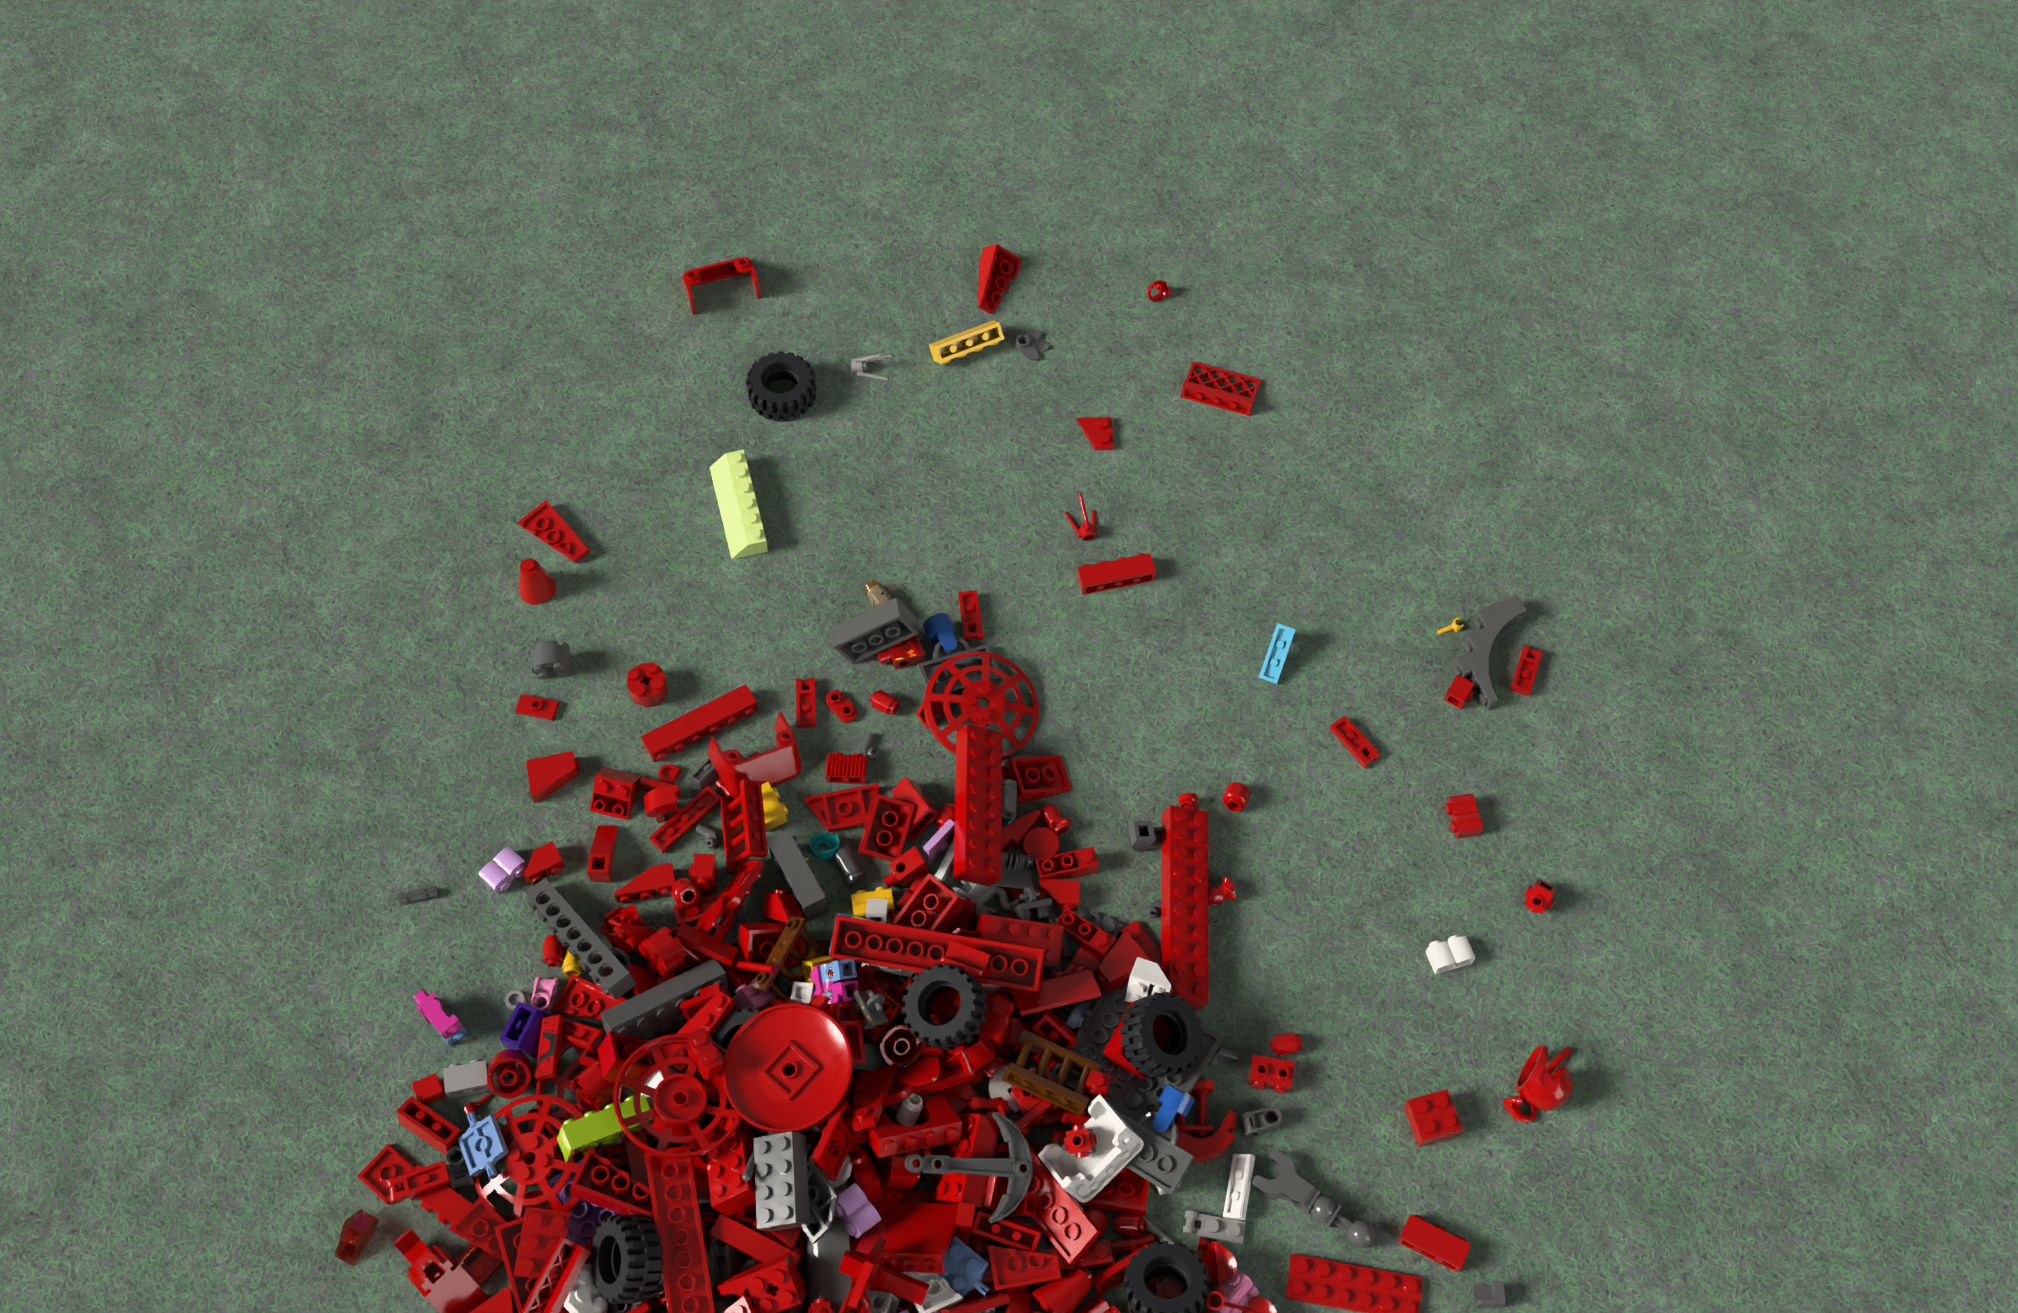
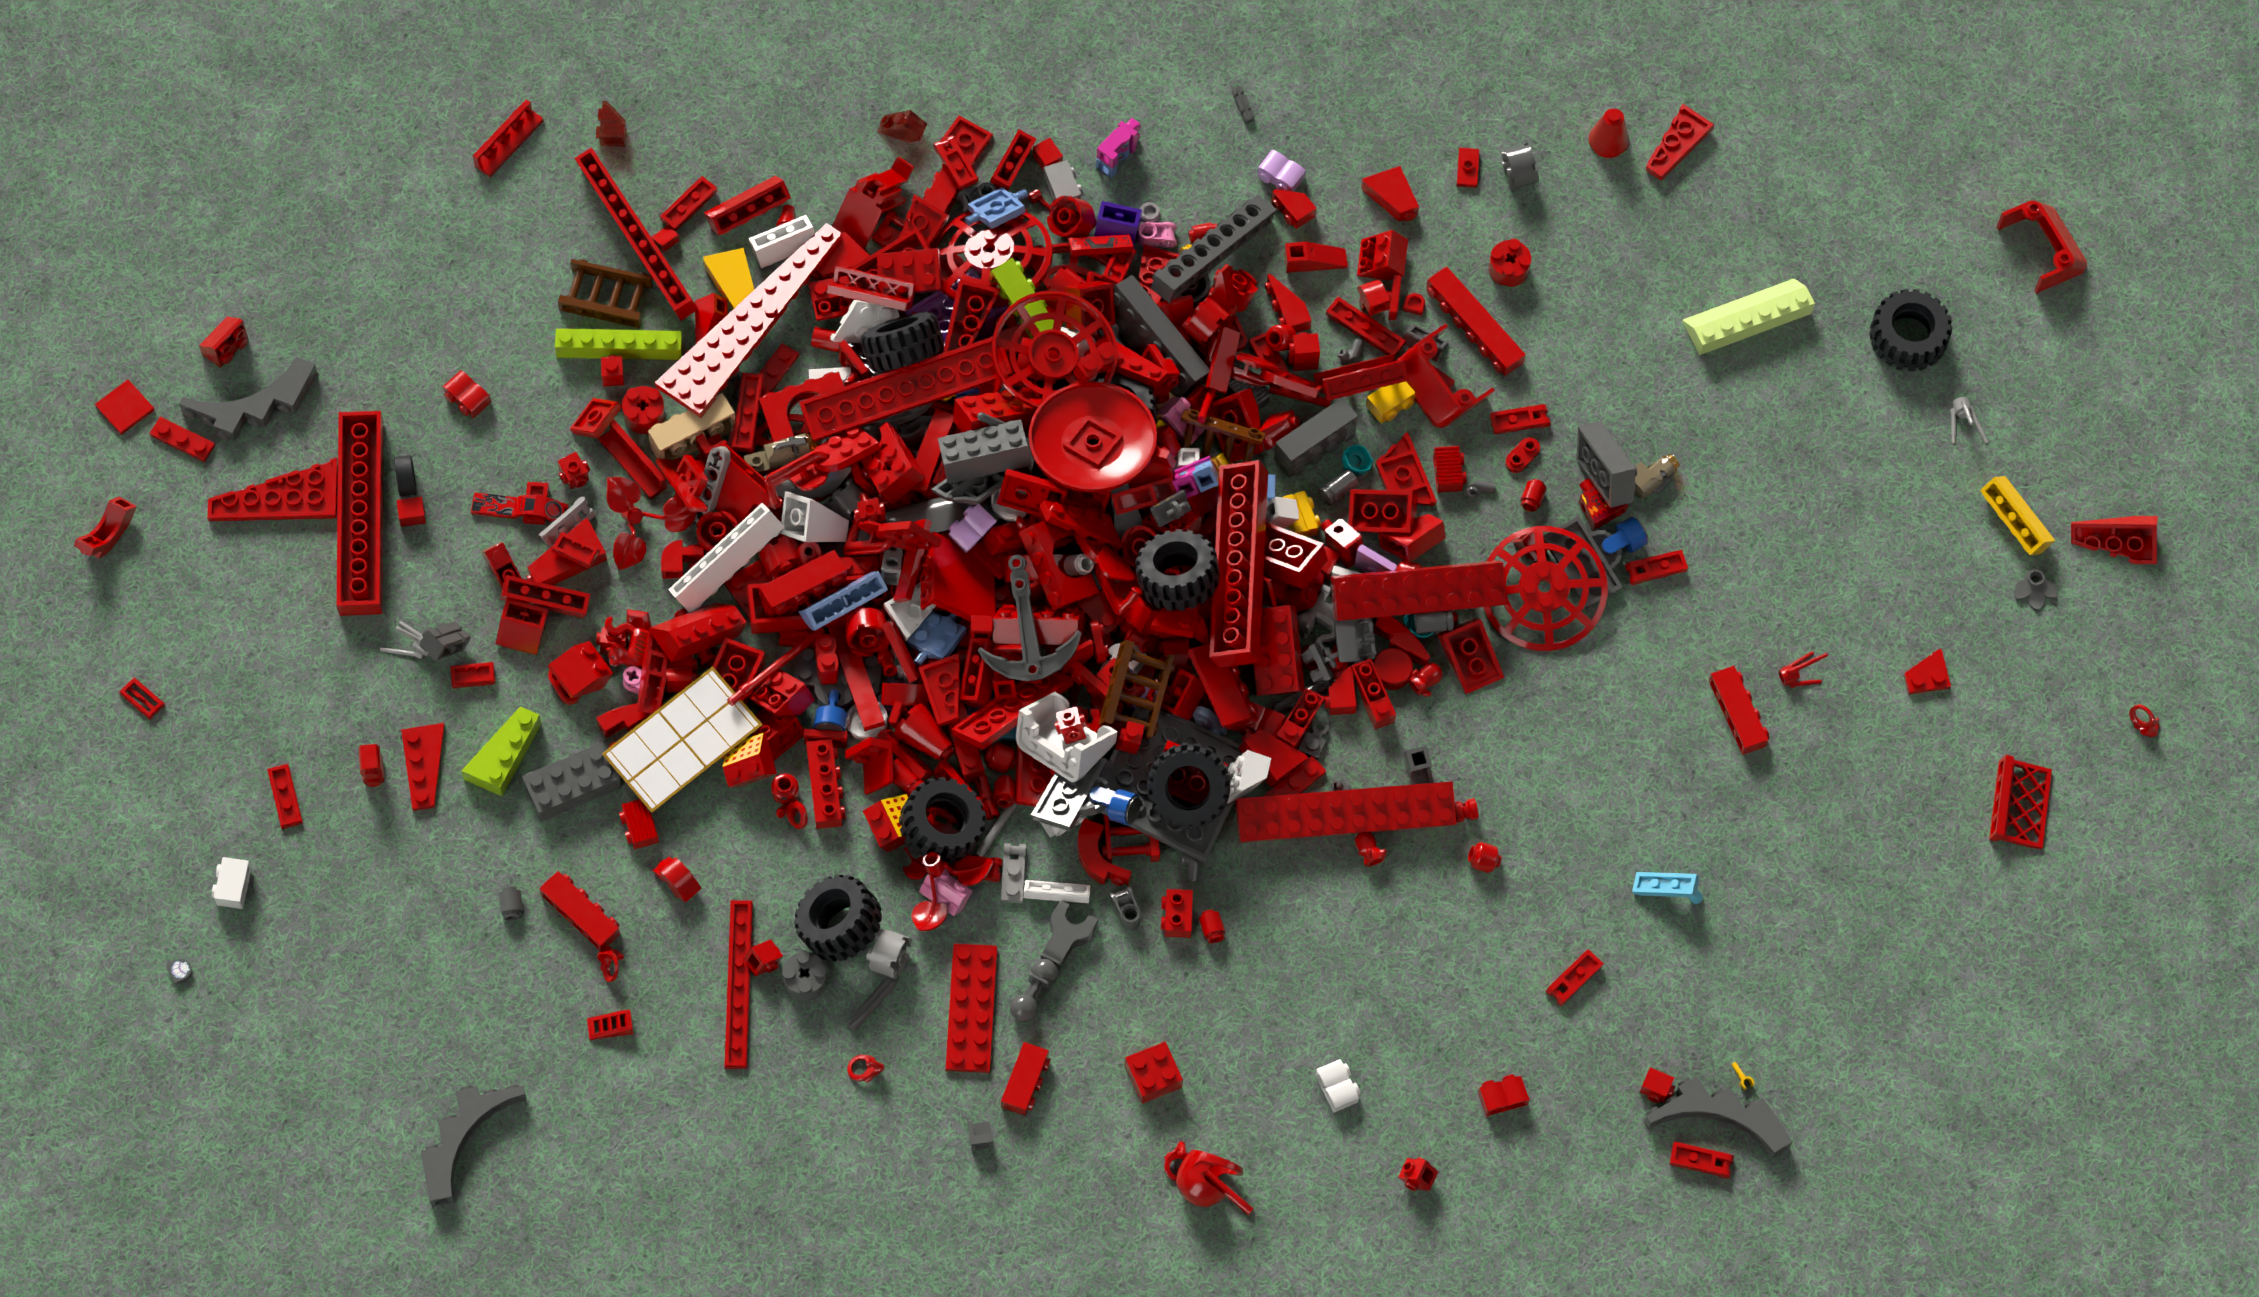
camera: 80 degrees right, 5 degrees up
(966, 957) = (1229, 582): red panel -> none

